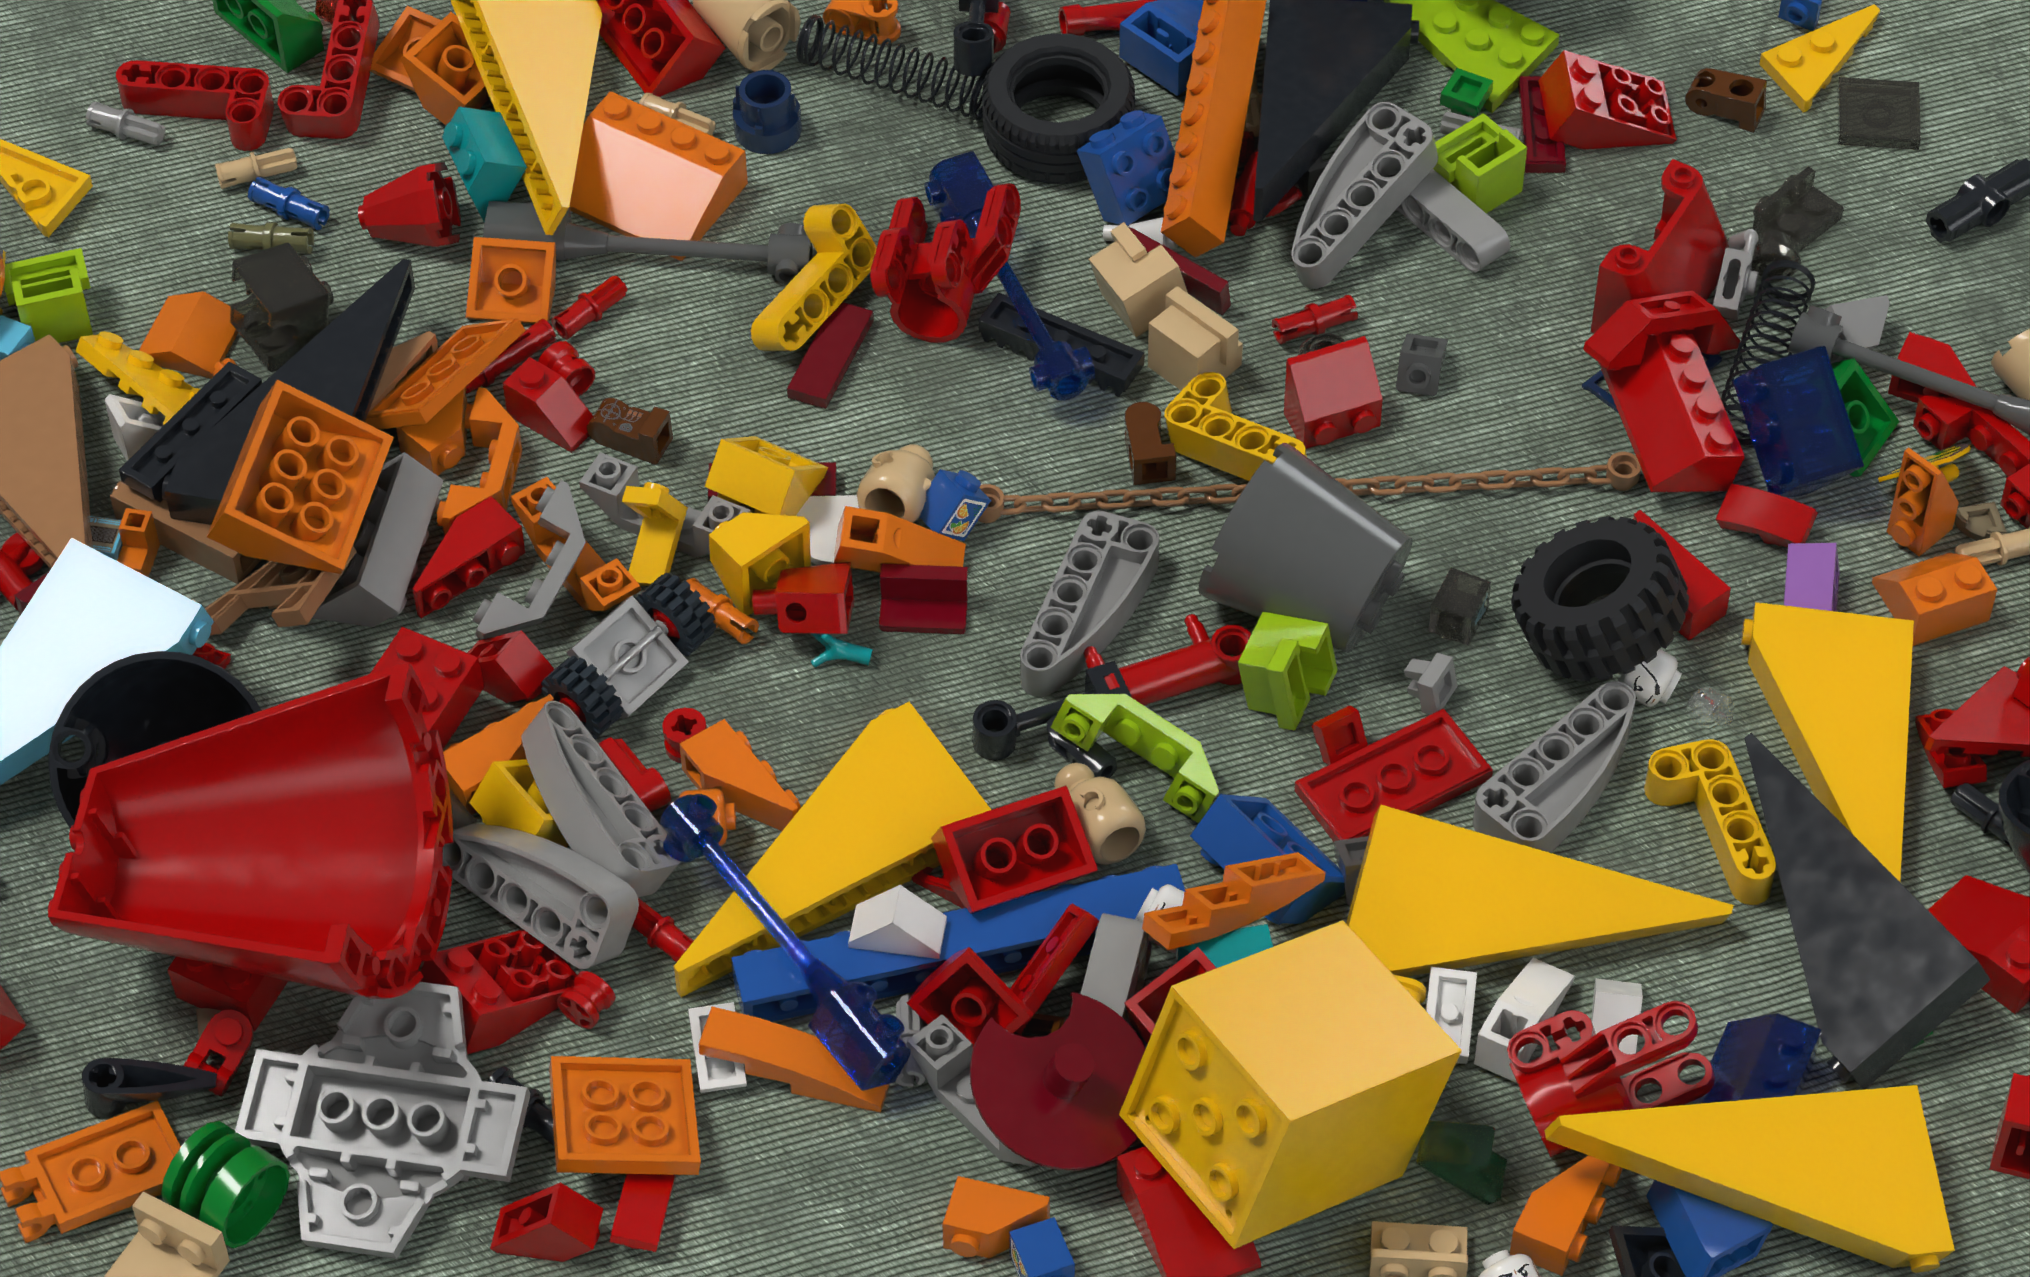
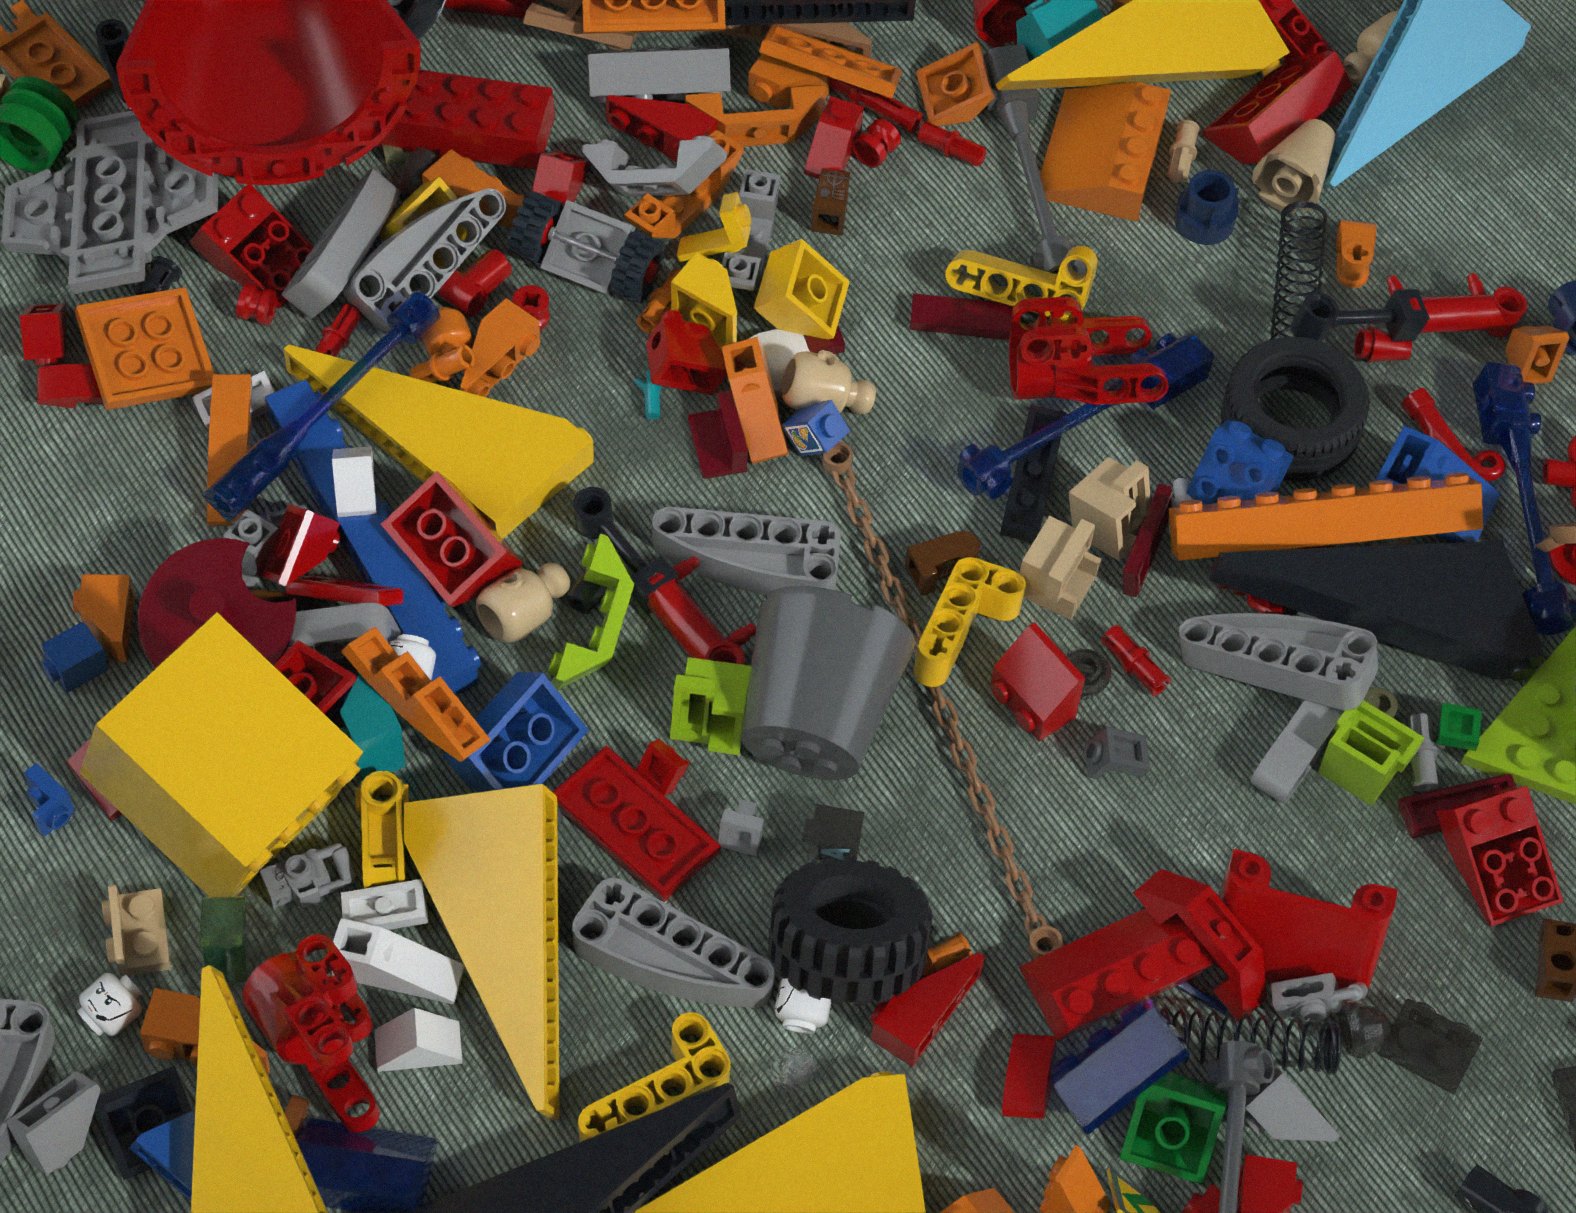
camera: 70 degrees right, 5 degrees up
(753, 825) = (444, 365): none -> orange axle
(1812, 576) = (956, 1130): medium lavender hinge -> none

